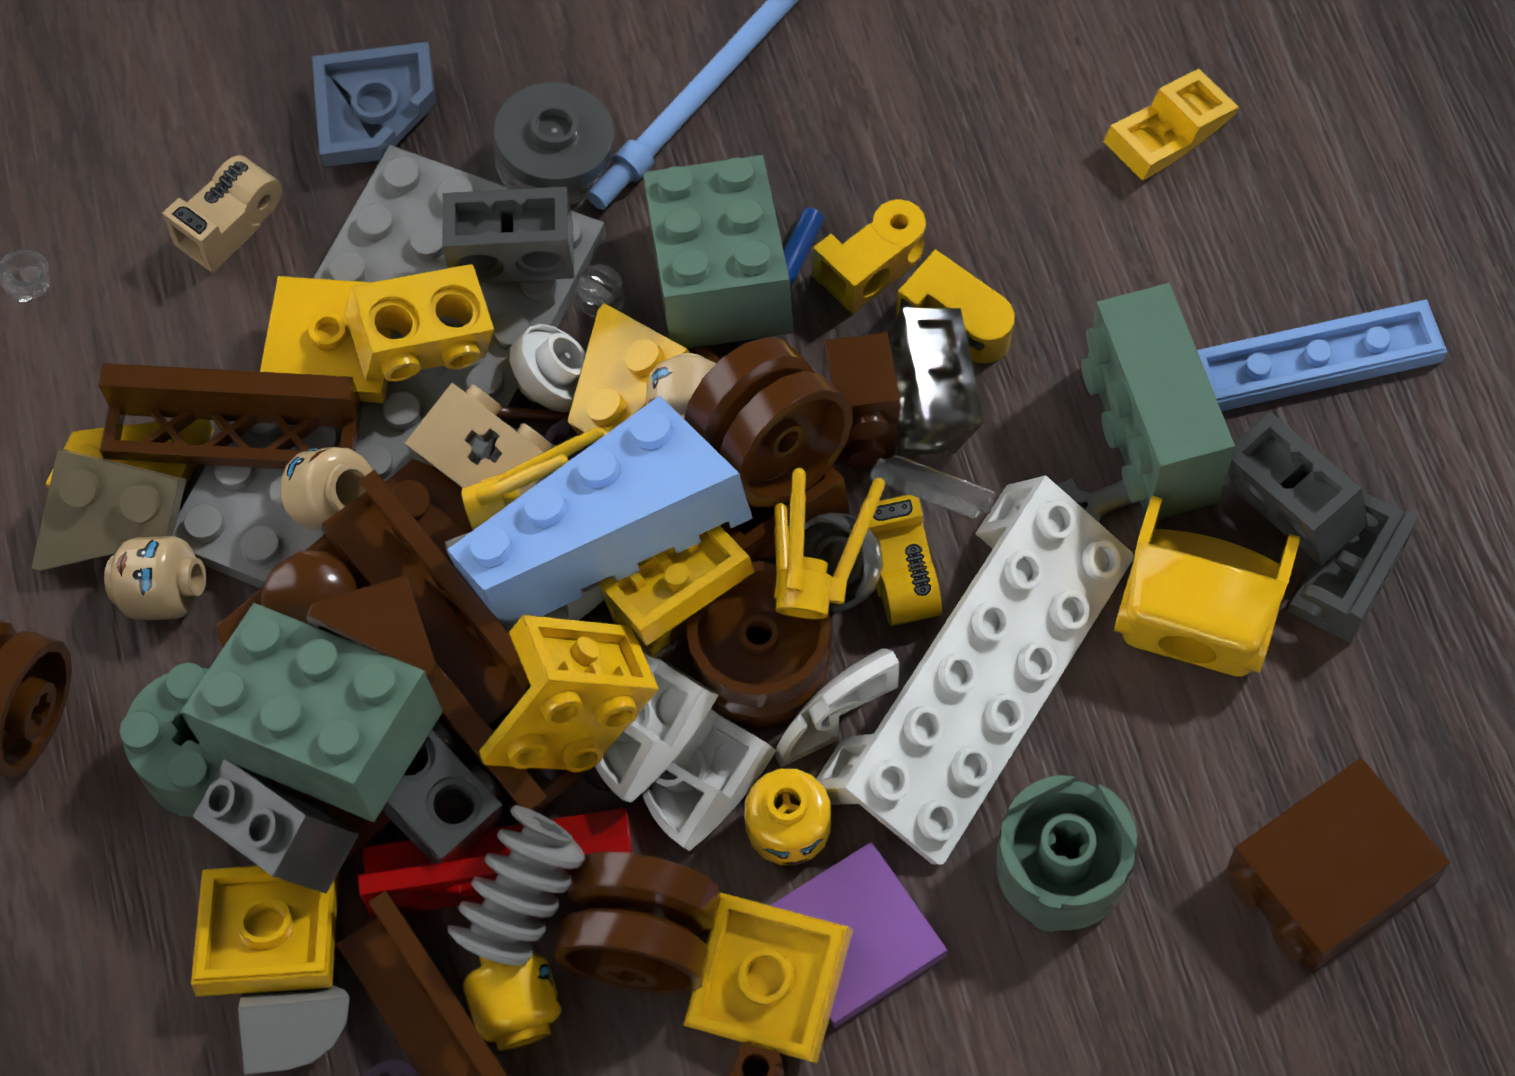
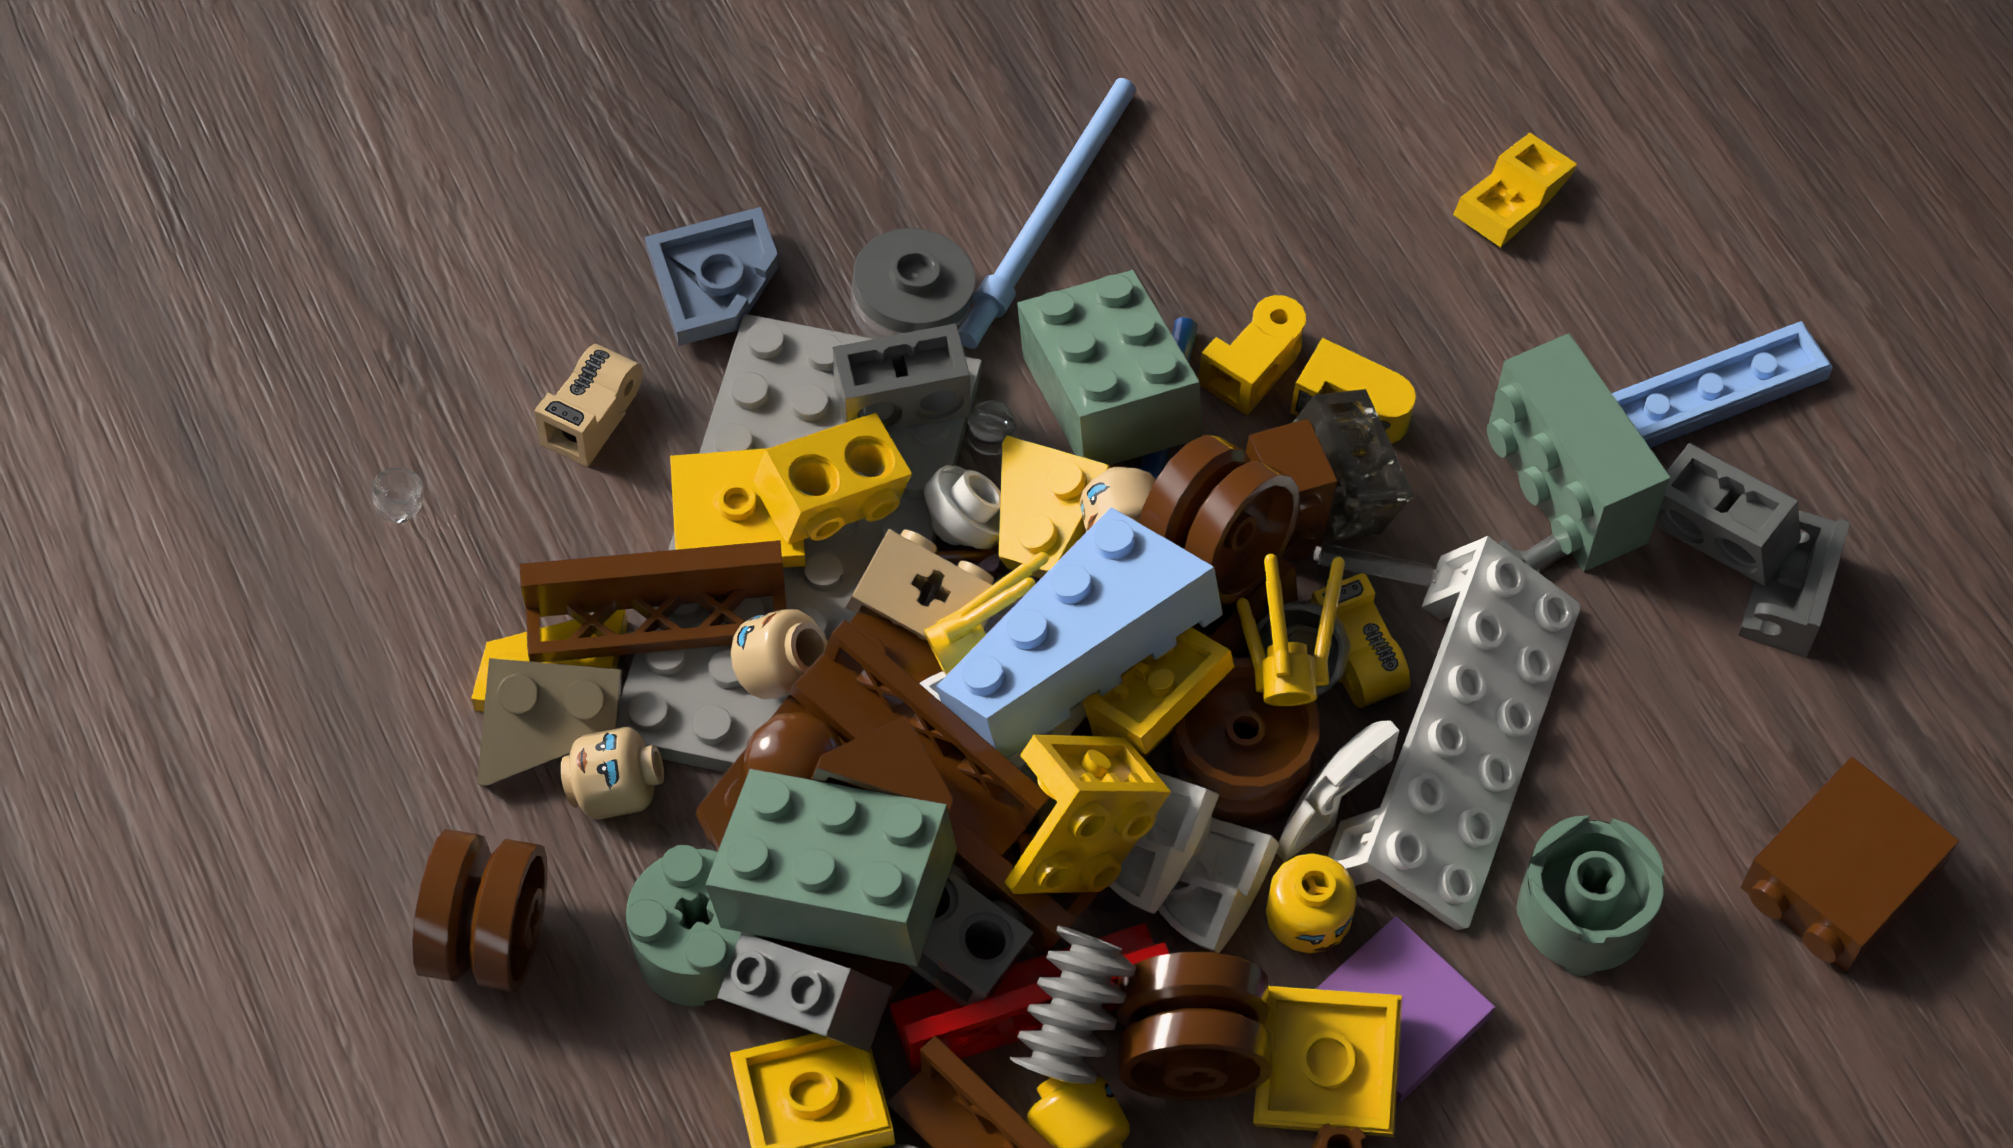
camera: 15 degrees left, 5 degrees down
(1202, 598) = (1660, 633): yellow piece -> none

